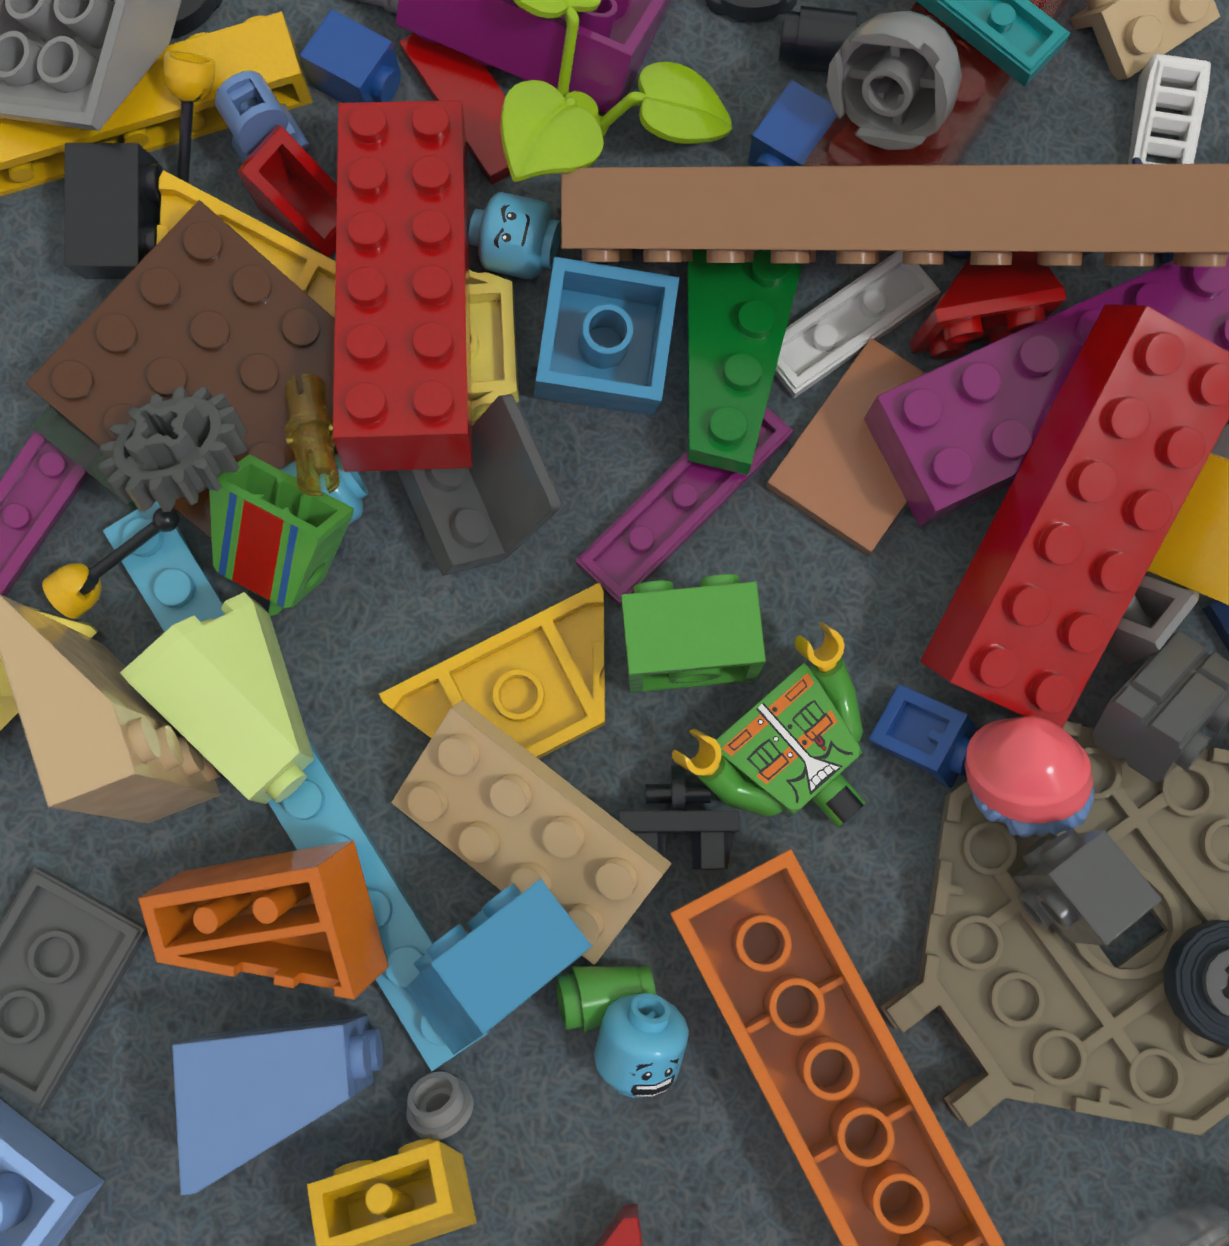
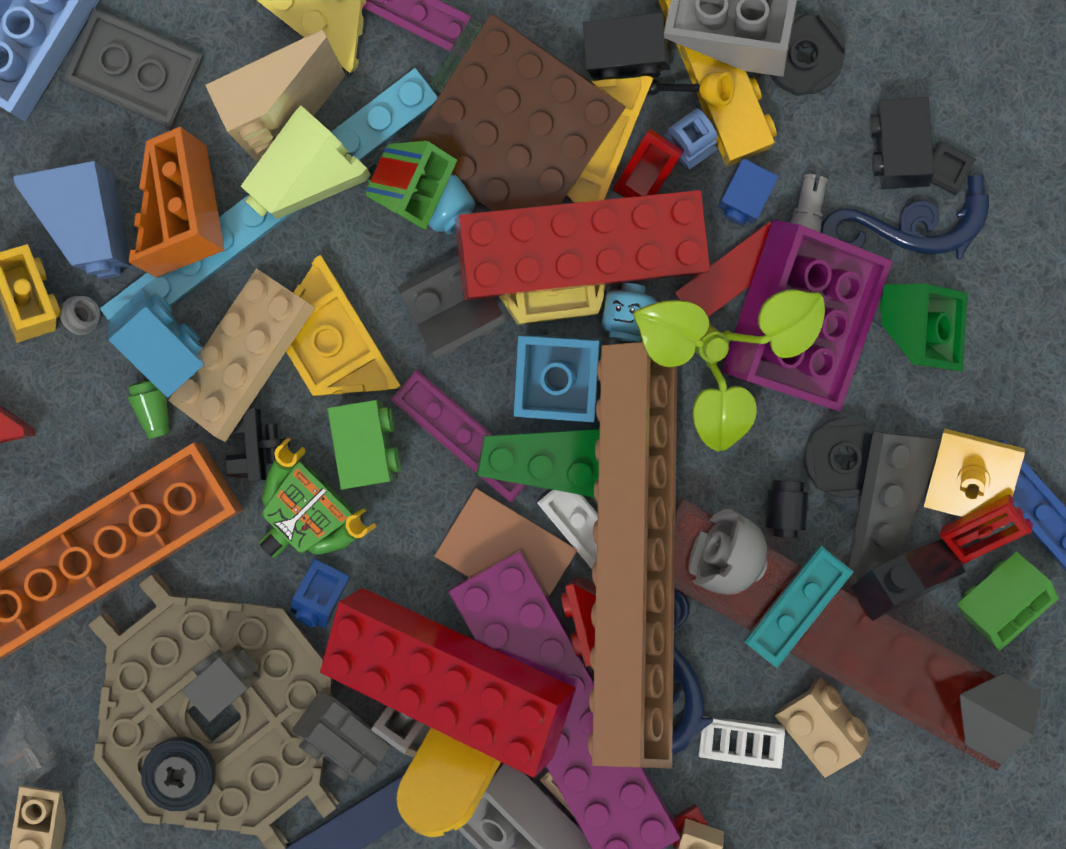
camera: 80 degrees right, 10 degrees up
(78, 588) = (376, 56): hinge -> none
(173, 449) = (432, 105): dark grey gear -> none
(311, 435) = (472, 197): clear yellow pin -> none
(641, 1045) = (121, 431): medium azure head -> none
(791, 128) = (711, 490): blue brick -> none
(1029, 776) = (288, 652): coral hair -> none

